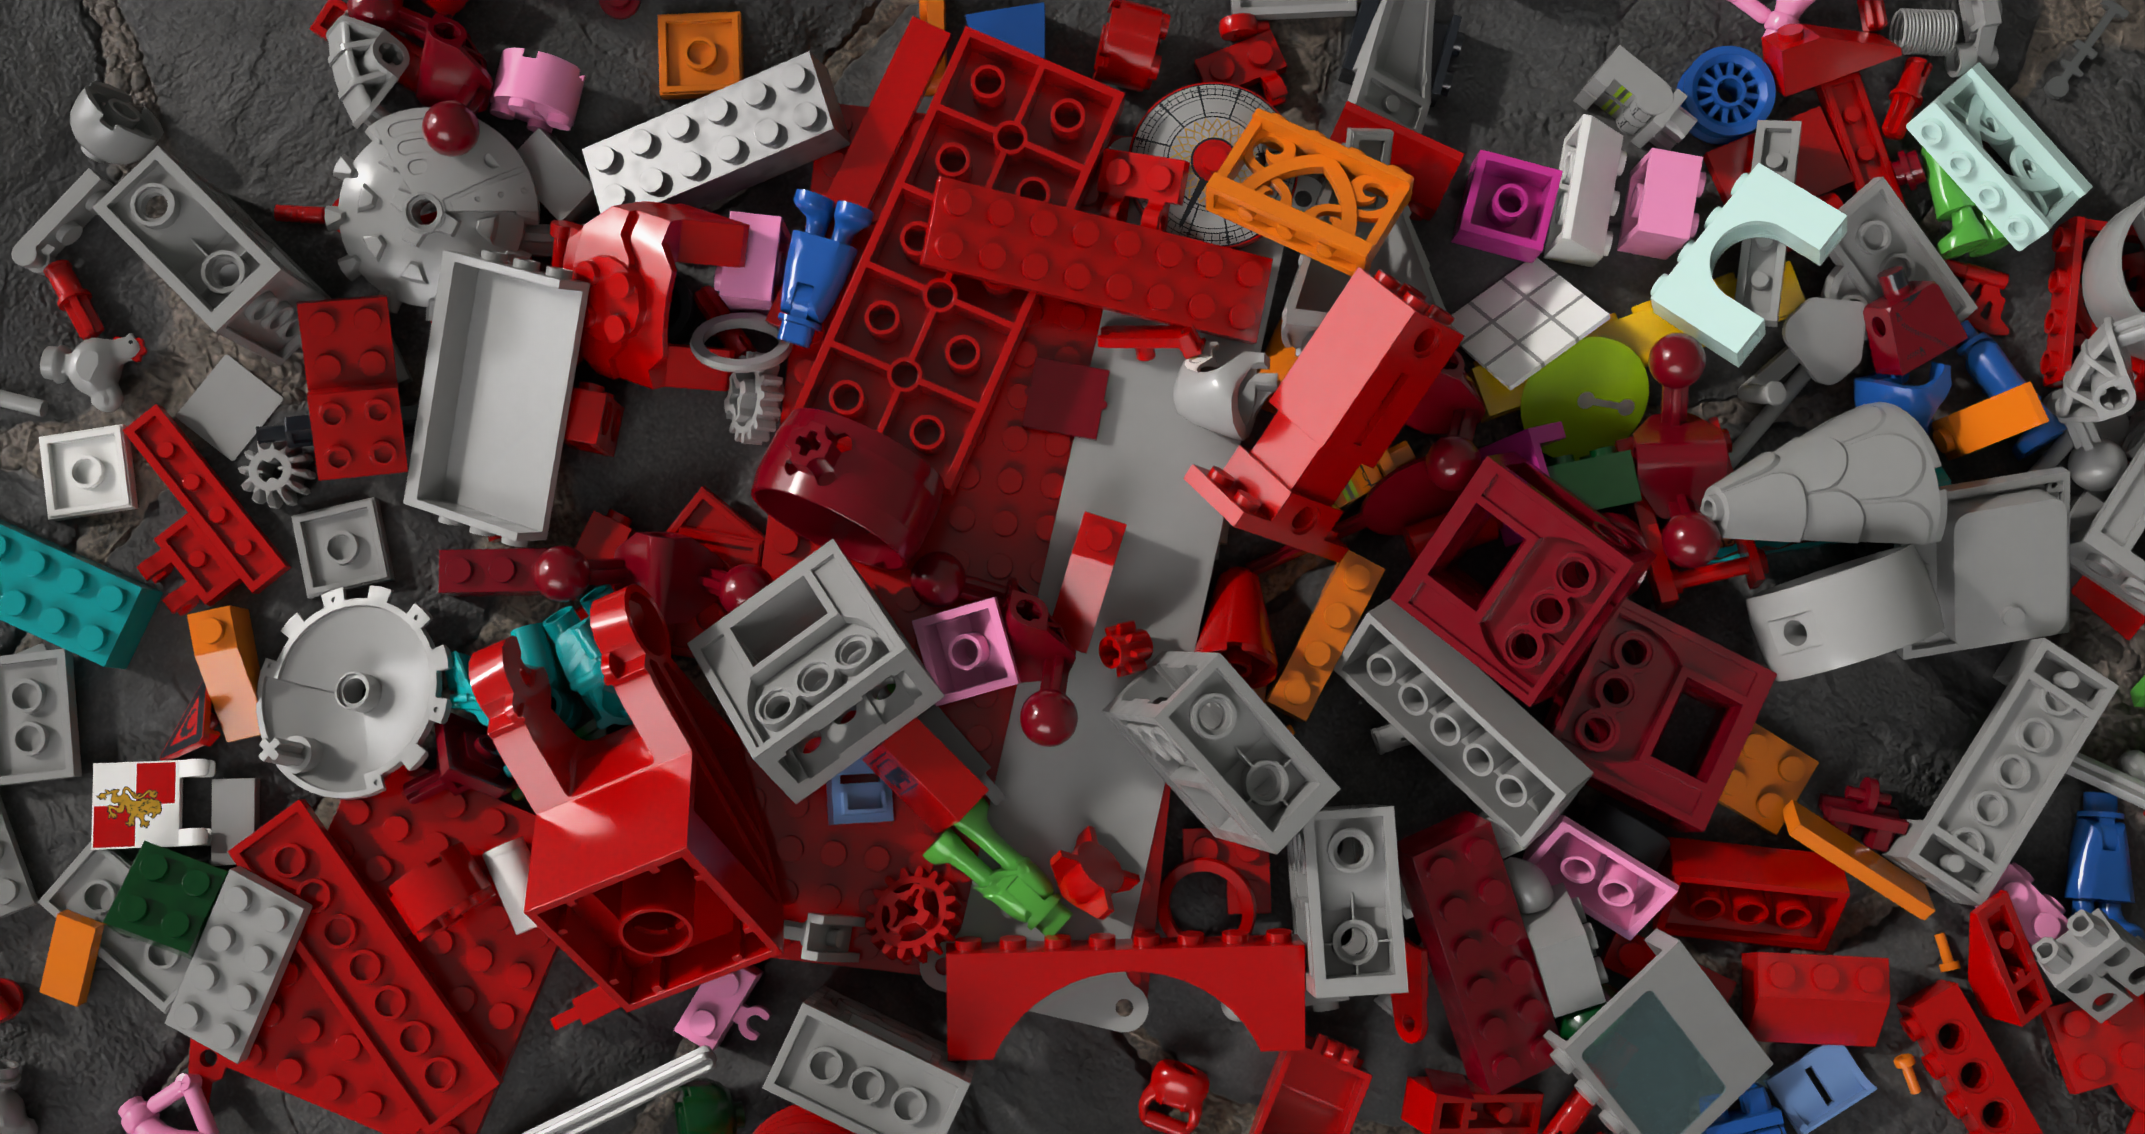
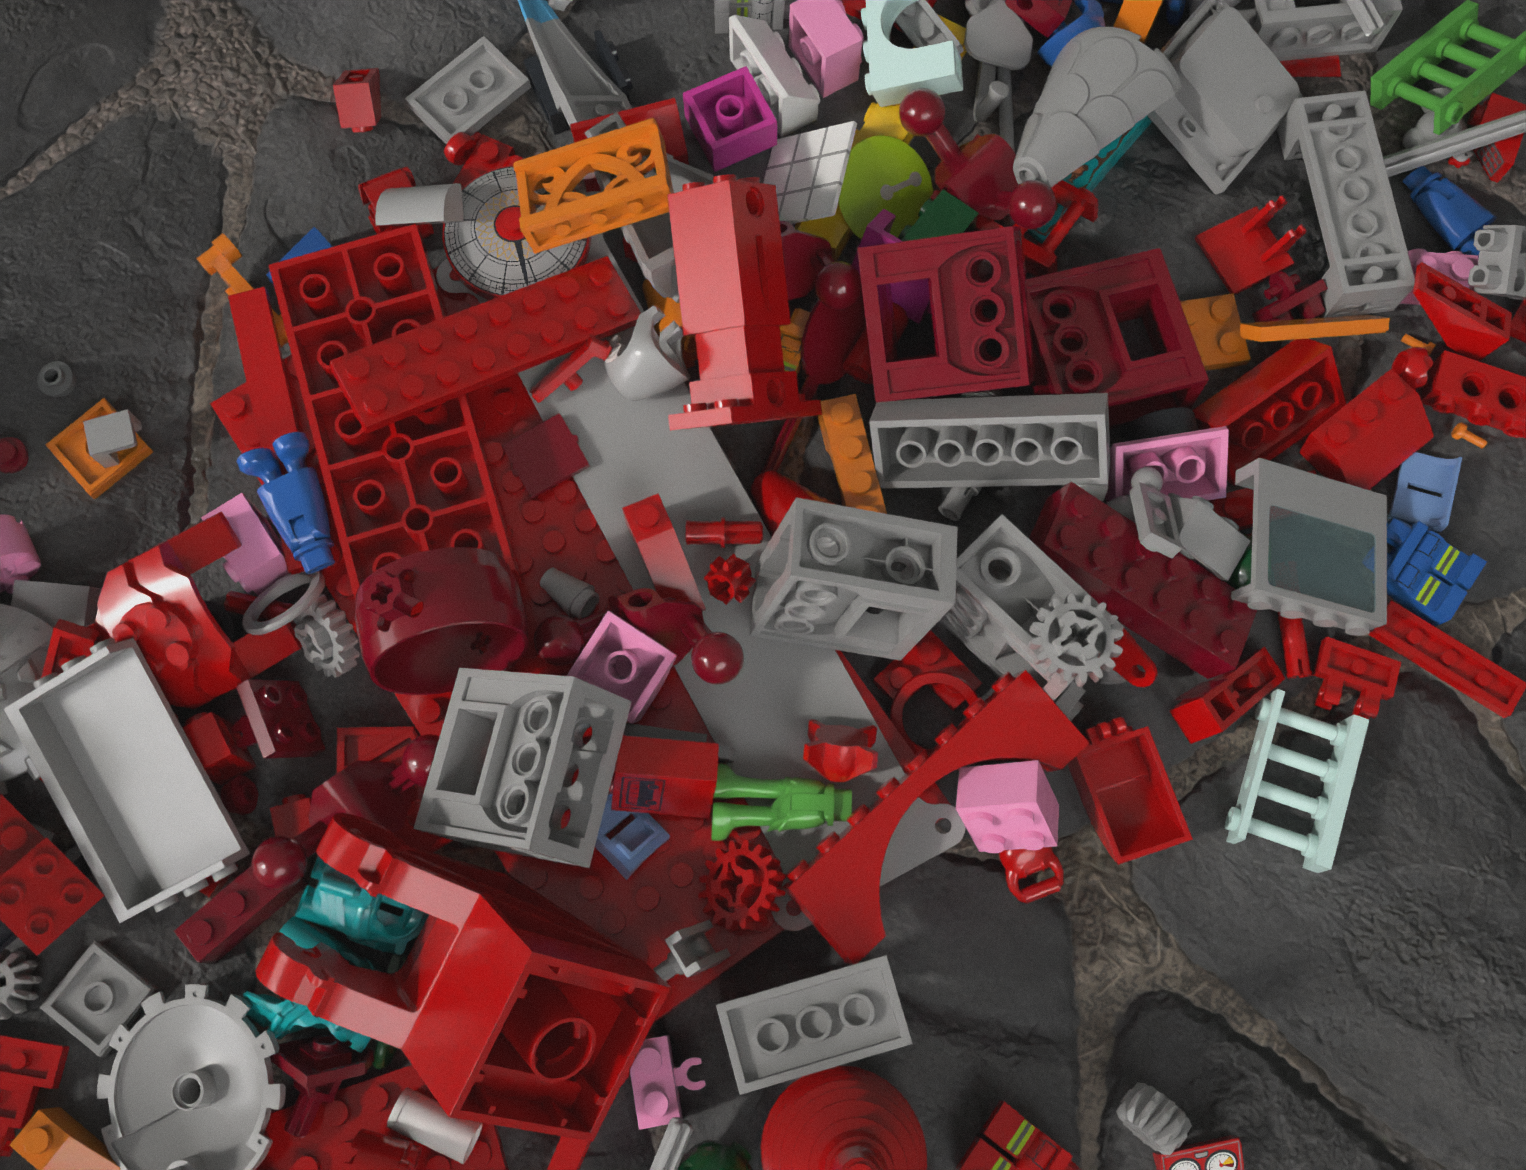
camera: 40 degrees left, 10 degrees down
(533, 241) = (67, 643): none -> red plate
(579, 474) = (239, 795): none -> dark red plate
(658, 439) = (277, 720): none -> dark red plate
(716, 61) = (111, 434): none -> light grey panel
(723, 140) = (158, 476): brick -> none
(983, 543) = (571, 594): none -> light grey cone
(1141, 177) = (476, 270): red plate -> none
(1144, 75) = (420, 205): none -> light grey brick
(1158, 601) = (723, 532): none -> red axle
(1191, 1040) = (1008, 806): none -> bright pink brick
(1348, 991) = (1083, 654): none -> light grey gear
(1539, 909) = (1154, 513): none -> light grey plate
(1845, 613) = (1164, 176): light grey cylinder -> none
(1873, 731) = (1246, 249): none -> red plate
(1913, 970) = (1413, 366): none -> red plate

